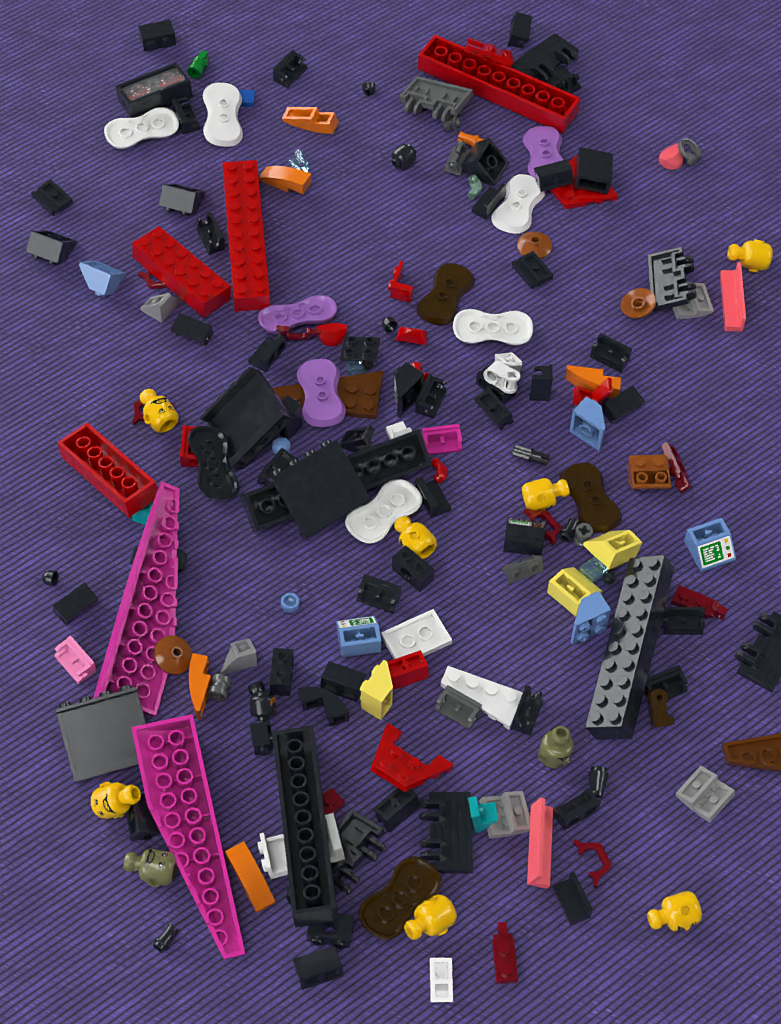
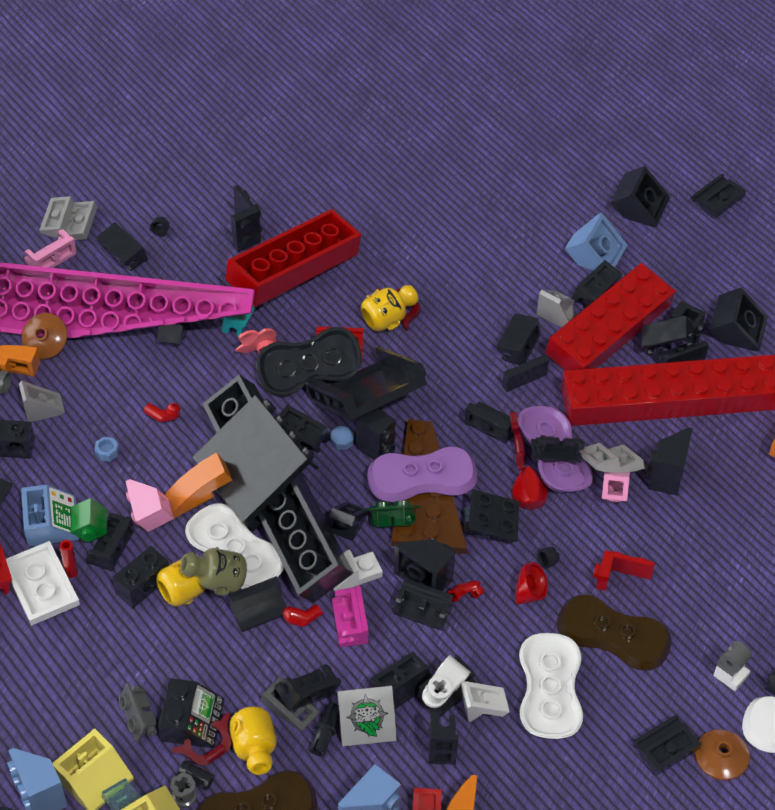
camera: 90 degrees right, 5 degrees down
(33, 651) = (70, 216): none -> light grey slope
(55, 505) = (245, 221): none -> black bracket
(141, 278) = (596, 283): none -> black hinge
(180, 227) = (694, 315): none -> black brick
(189, 497) = (254, 340): none -> coral plate
(200, 236) = (667, 332): none -> black hinge
(226, 328) = (525, 373): none -> black tile
(255, 566) = (163, 415): none -> red arm
(304, 307) = (555, 450): none -> black hinge
(311, 278) = (612, 460): none -> light grey slope
(316, 243) = (668, 462): none -> black slope
(332, 278) = (615, 486): none -> bright pink brick
(336, 532) = (198, 484): none -> orange slope
(347, 566) = (148, 505): none -> bright pink slope
(359, 401) = (383, 514): none -> dark green hinge
(364, 606) = (88, 520): none -> green brick
(402, 611) = (68, 558): none -> red piece
(417, 508) = (216, 569): none -> olive piece
(476, 224) = (731, 665): none -> dark grey leg
(504, 460) = (308, 688): none -> black hinge
(506, 487) = (277, 707): none -> dark grey slope
(523, 426) = (367, 716): none -> light grey slope

